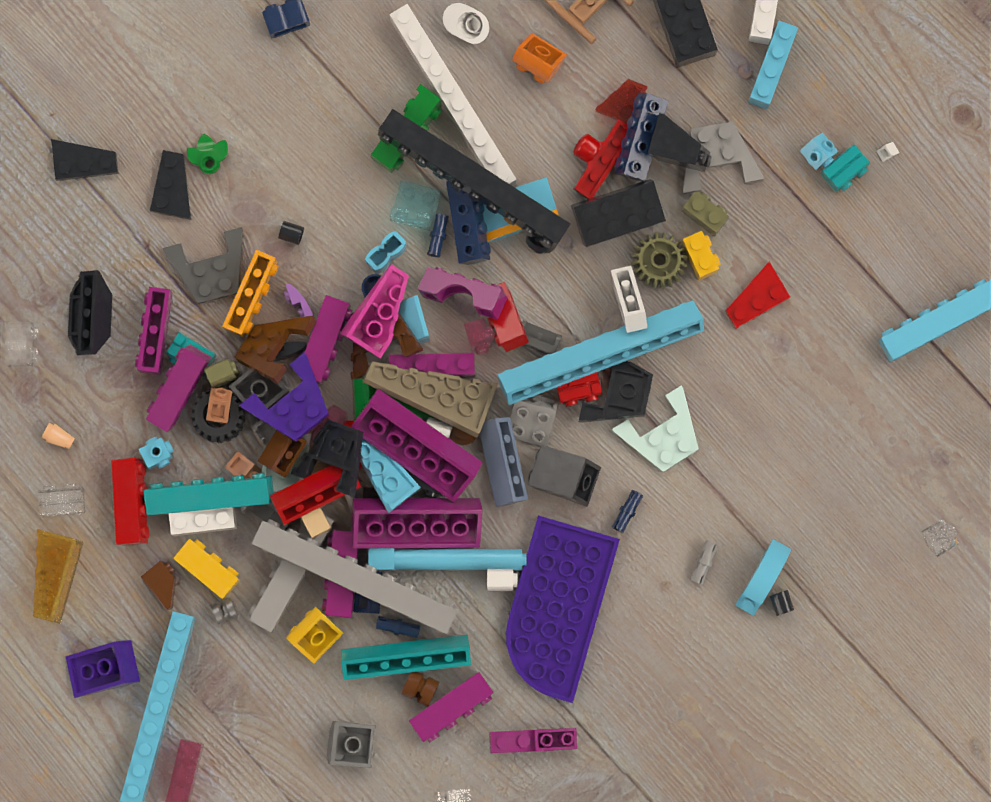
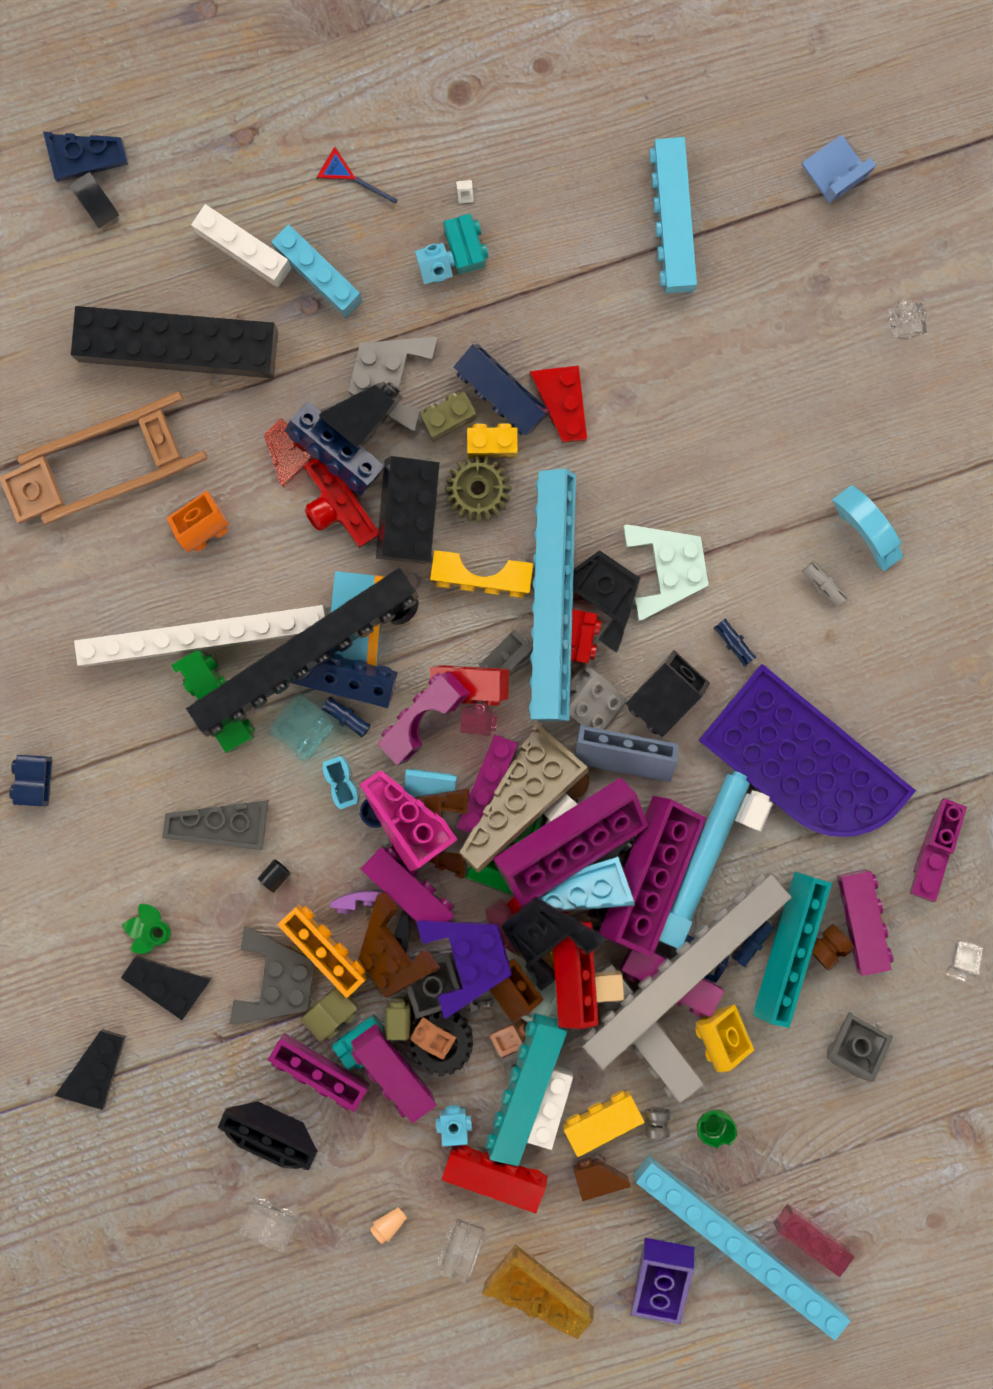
camera: 70 degrees left, 5 degrees up
(203, 320) = (329, 1013): none -> olive brick
(240, 659) = (716, 1128): none -> green hair
(314, 180) = (226, 825): none -> dark grey wing
(466, 23) = (124, 585): white piece -> none
(601, 317) = (449, 570): none -> yellow arch
(629, 299) = (509, 539): white brick -> none
(744, 244) = (501, 389): none -> dark blue brick
(782, 603) = (904, 519): black beam -> none
(861, 45) = (336, 168): none -> piece

